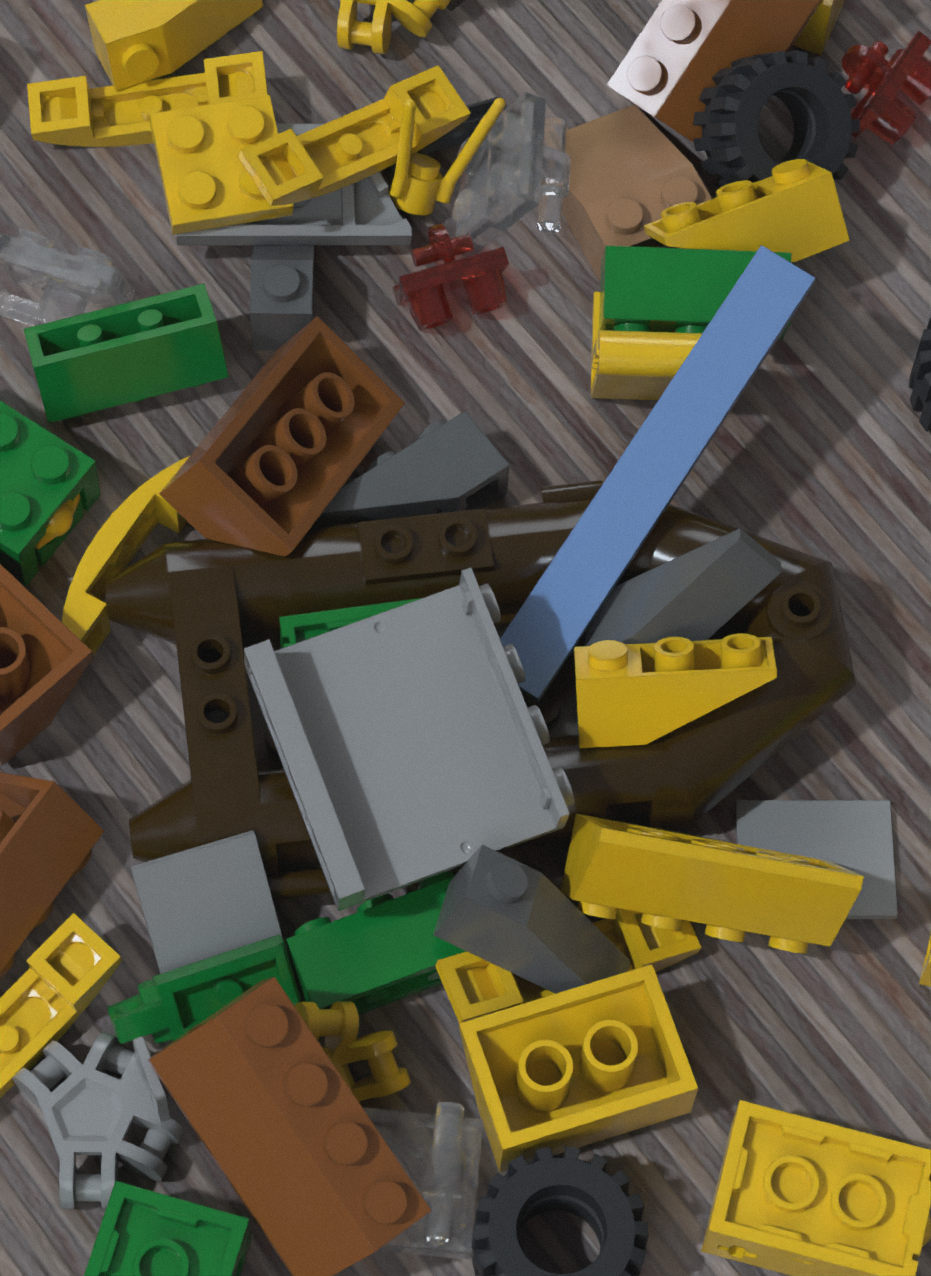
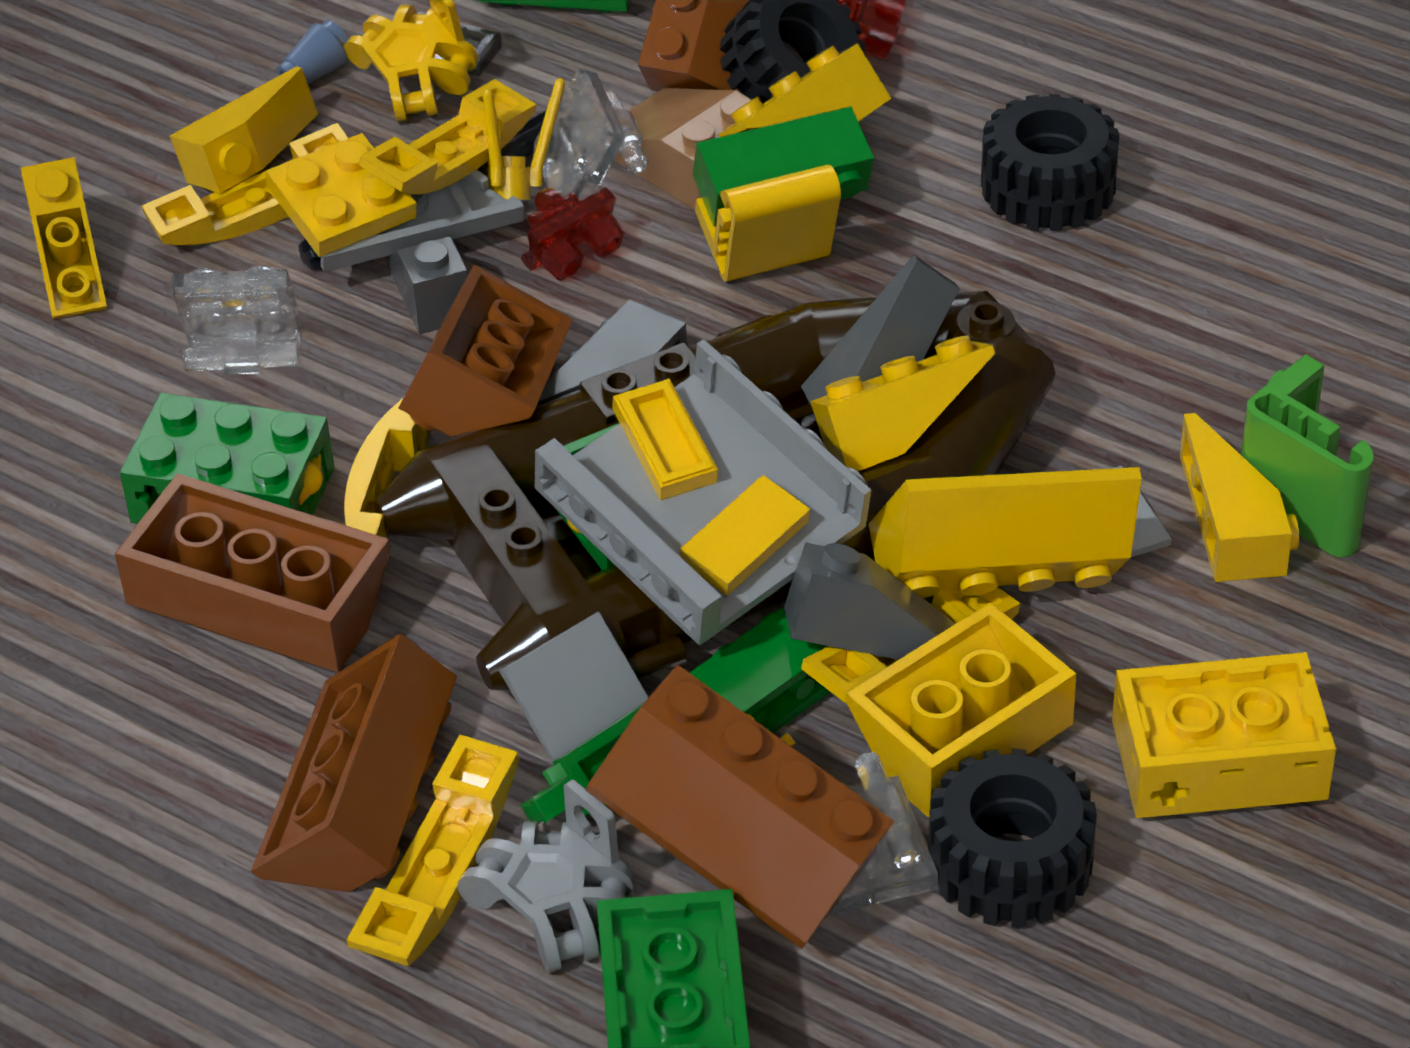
camera: 15 degrees left, 20 degrees down
(126, 353) = (317, 347): green brick -> none
(393, 661) = (665, 439): none -> yellow tile
(428, 807) = (745, 535): none -> yellow tile
(654, 467) = (819, 247): medium blue tile -> none

